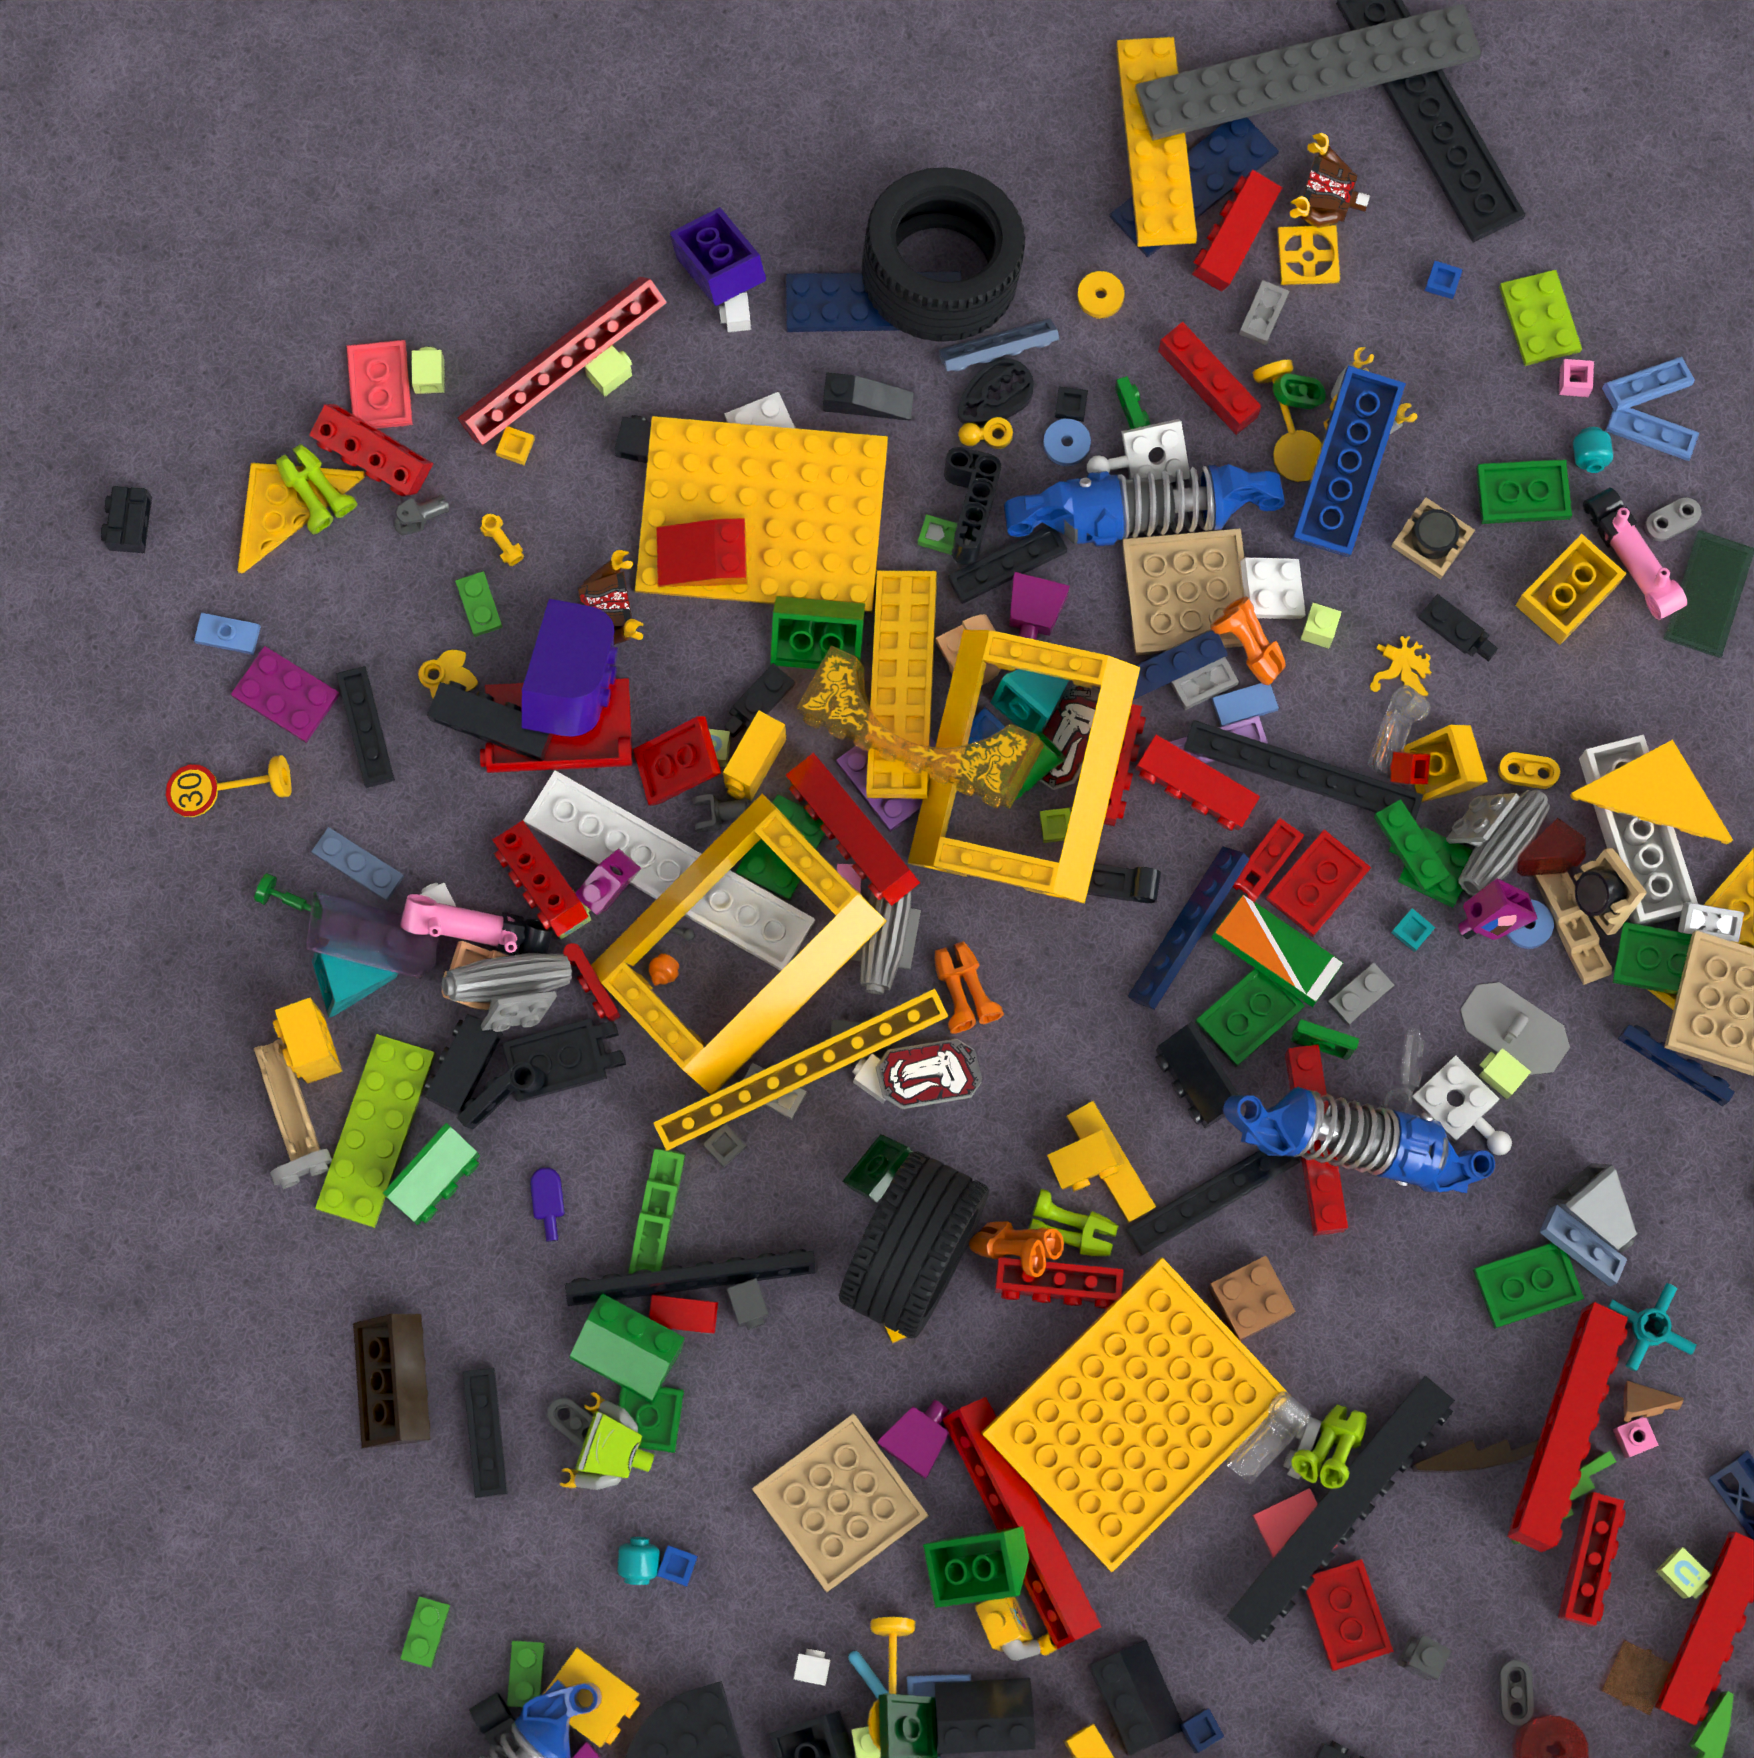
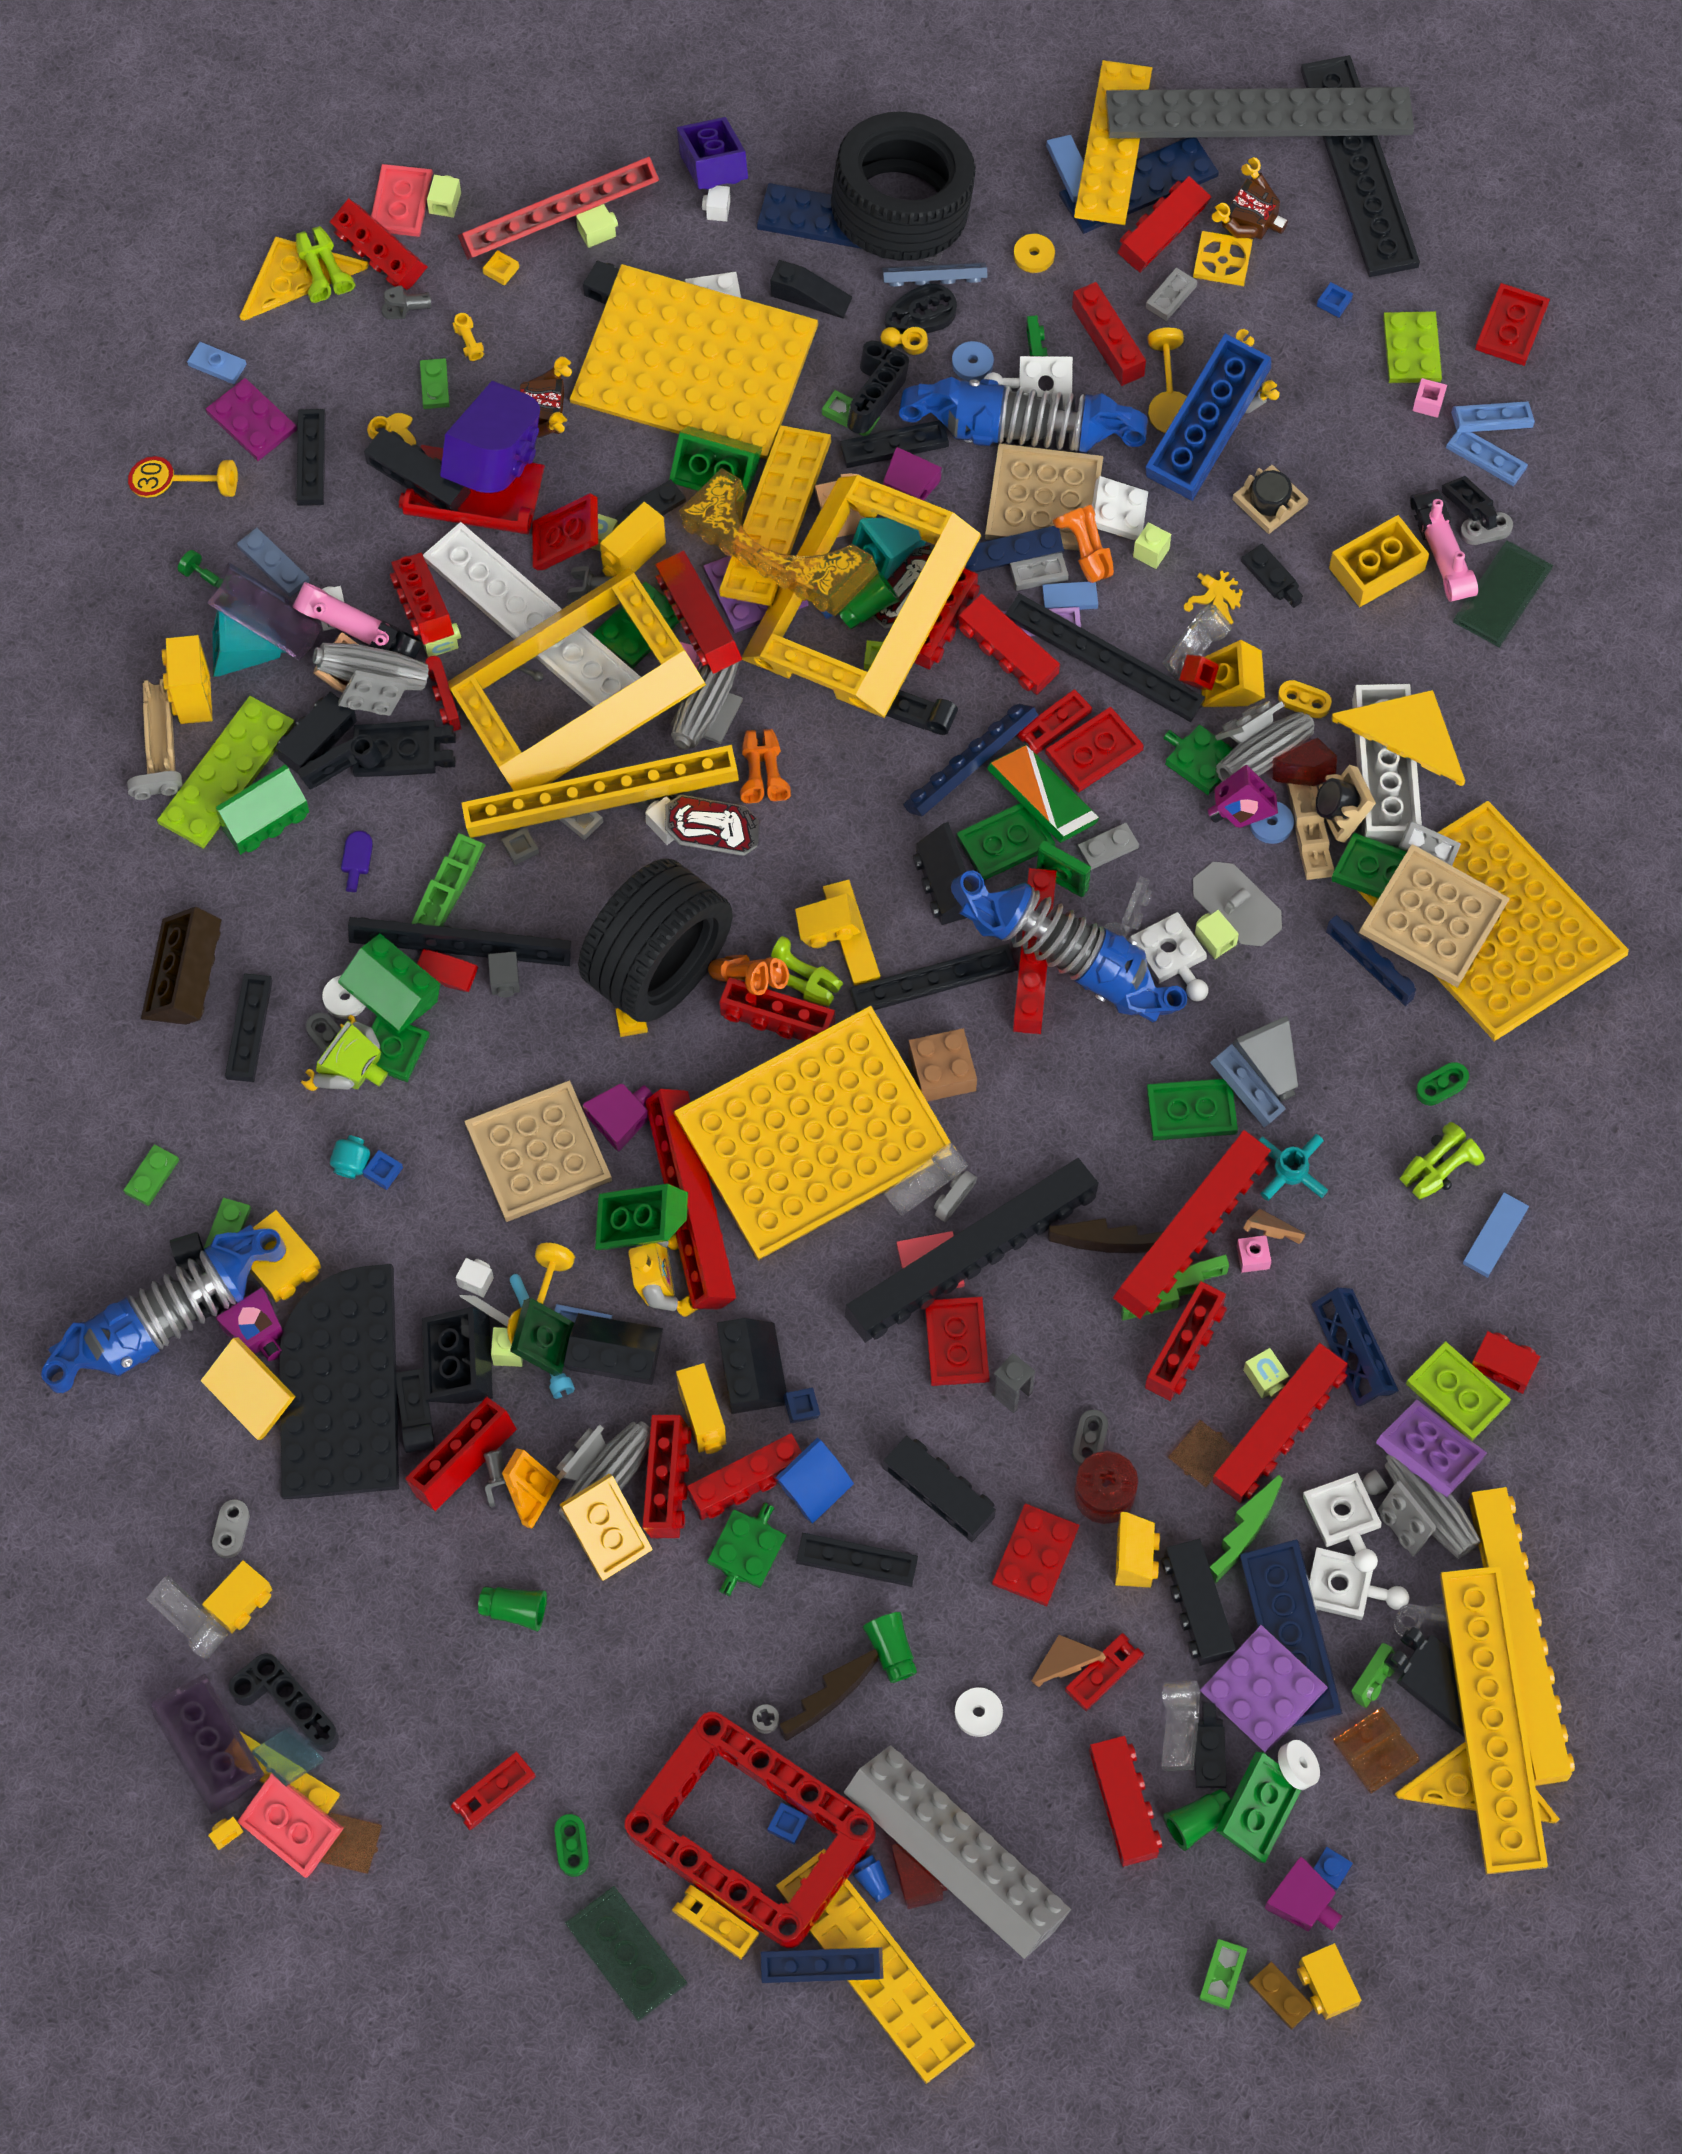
camera: 15 degrees right, 10 degrees down
(127, 519) = (159, 257): black brick -> none
(572, 1382) = (336, 1006): none -> white piece
(604, 885) = (475, 616): magenta torso -> none
(663, 969) = (508, 696): orange plate -> none
(702, 553) = (635, 377): red slope -> none
(838, 1702) = (486, 1308): none -> white sticker
(1071, 403) = (984, 330): black plate -> none
(1112, 178) = (1068, 163): none -> medium blue tile
(1299, 391) = (1183, 358): green plate -> none
(1333, 1430) = (990, 1186): lime piece -> none
(1411, 846) = (1183, 733): green plate -> none
(1413, 930) = (1167, 804): teal plate -> none
(1523, 491) = (1360, 479): green plate -> none
(1593, 449) = (1429, 456): teal head -> none
(1642, 266) = (1512, 324): none -> red plate
(1652, 494) = (1471, 501): none -> black hinge

